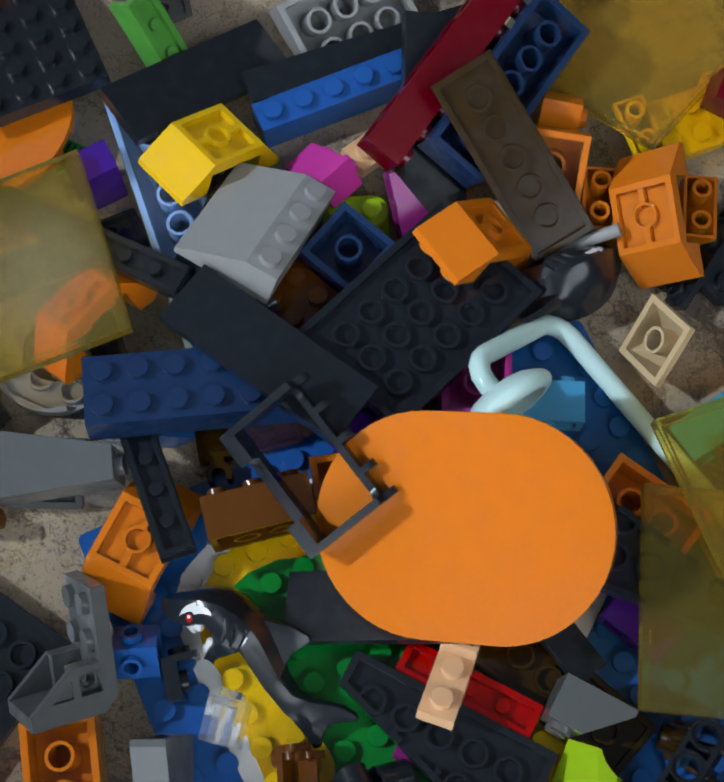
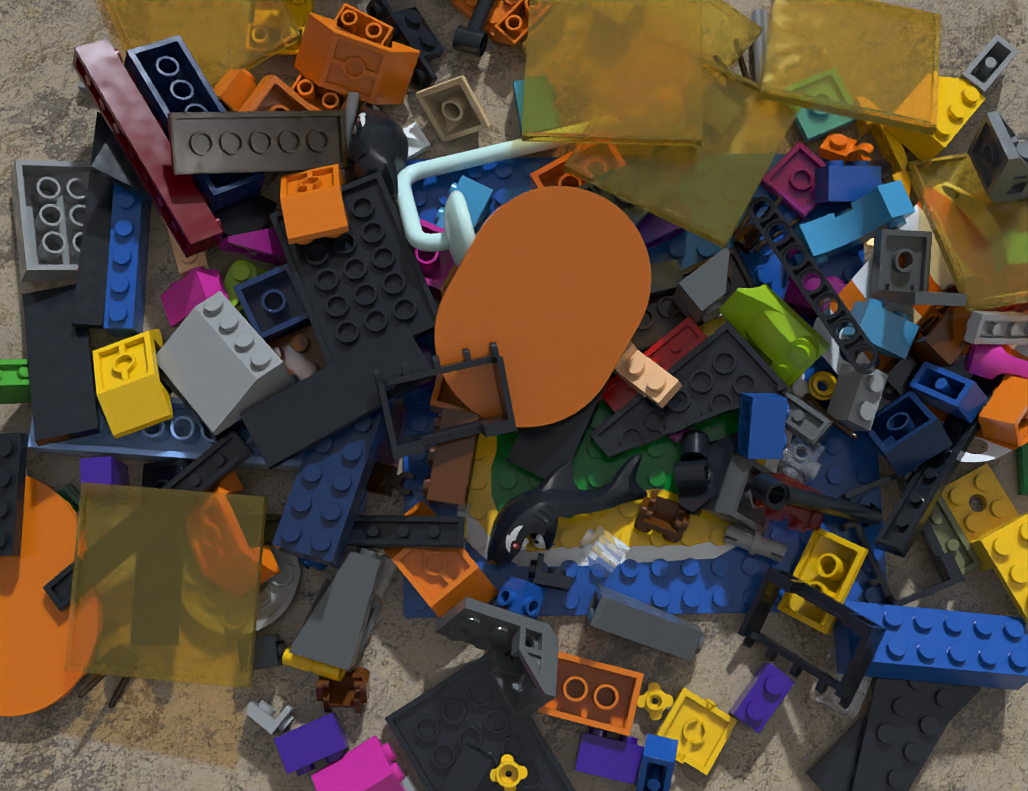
camera: 65 degrees left, 5 degrees up
(604, 319) = (416, 140): none -> white tile

